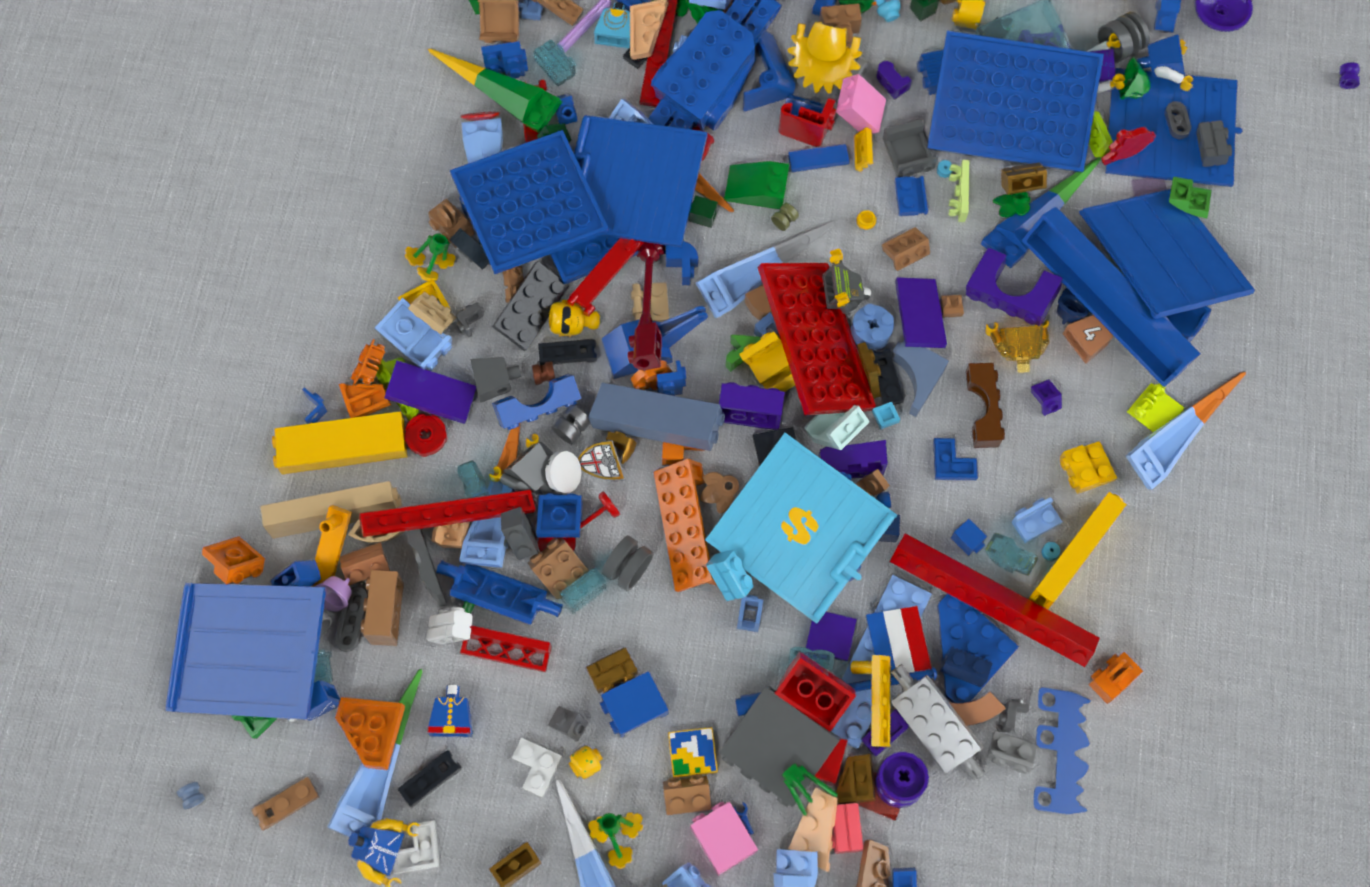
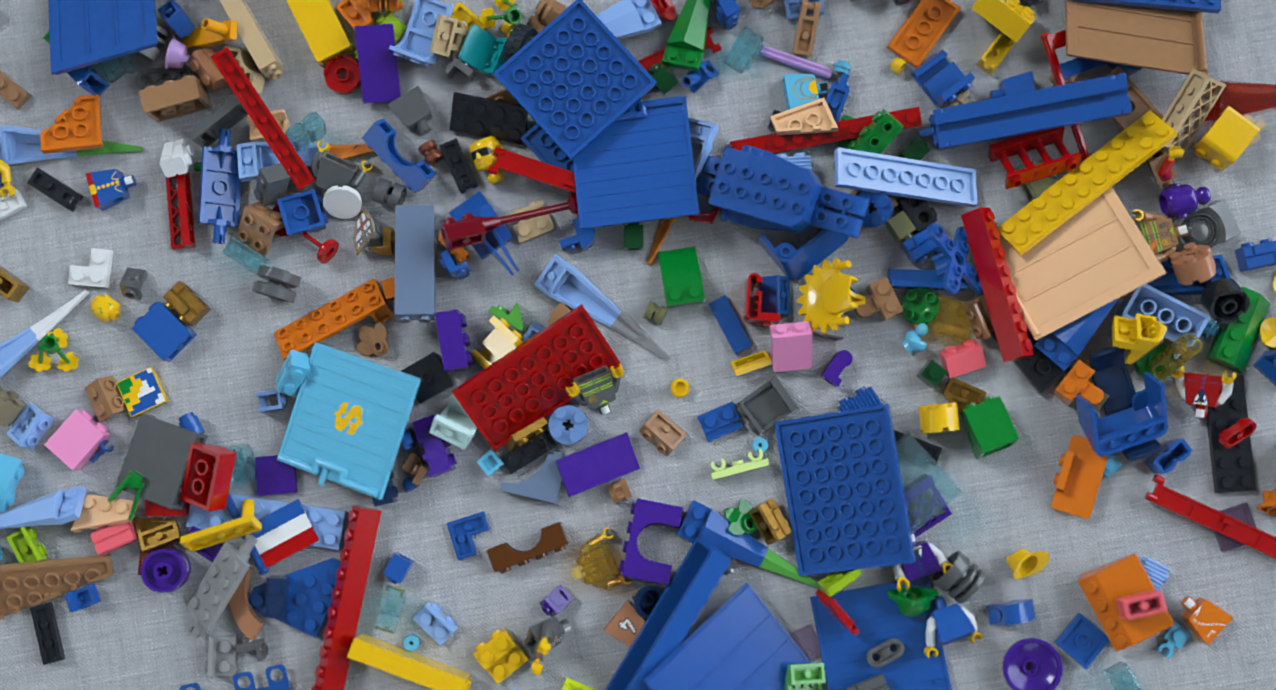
camera: 75 degrees right, 15 degrees up
(462, 286) = (483, 50): none -> teal bracket
(1084, 415) = (543, 638): none -> dark grey torso

